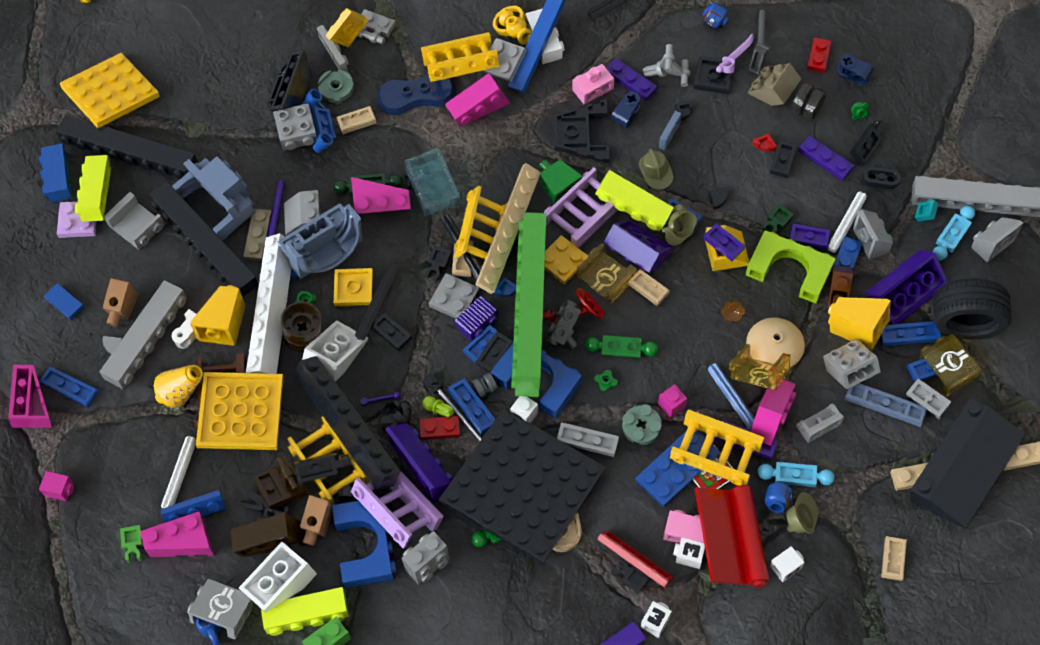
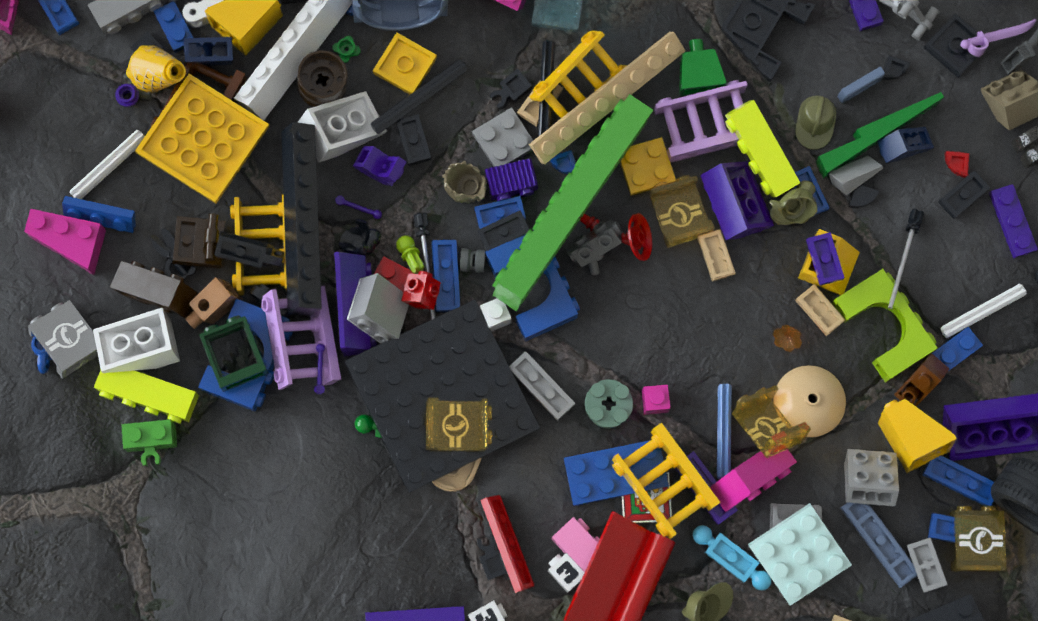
camera: 25 degrees right, 15 degrees up
(131, 540) = (19, 211): bright green plate -> none
(164, 413) = (122, 90): none -> dark purple plate
(171, 354) = (173, 25): none -> blue plate
(209, 352) = (208, 50): none -> dark blue arch
(371, 552) = (241, 376): none -> dark green window
(378, 361) = (379, 165): none -> dark purple brick
(415, 502) = (319, 388): none -> dark purple hinge
(425, 558) = (295, 413): light grey brick -> none
(440, 450) = (378, 308): none -> light grey piece
(446, 337) = (464, 183): none -> dark tan hair
(462, 422) = (421, 290): none -> red brick
(548, 494) = (458, 425): none -> clear yellow panel
(604, 386) = (606, 338): green plate -> none
(621, 346) = (643, 304): green plate -> none
(627, 109) = (826, 32): dark blue piece -> none
(698, 156) = (868, 135): none -> green slope
(704, 186) = (854, 174): none -> light grey slope
(723, 149) = (904, 144): none -> dark blue arch
(741, 281) = (820, 310): none -> tan plate
(765, 198) = (912, 228): none -> piece
(778, 218) = (915, 262): dark green plate -> none
(778, 497) = (696, 571): blue head -> none
(810, 236) = (930, 303): dark purple plate -> none
(840, 442) = (799, 554): none -> light aqua plate
(872, 233) = (999, 344): light grey slope -> none

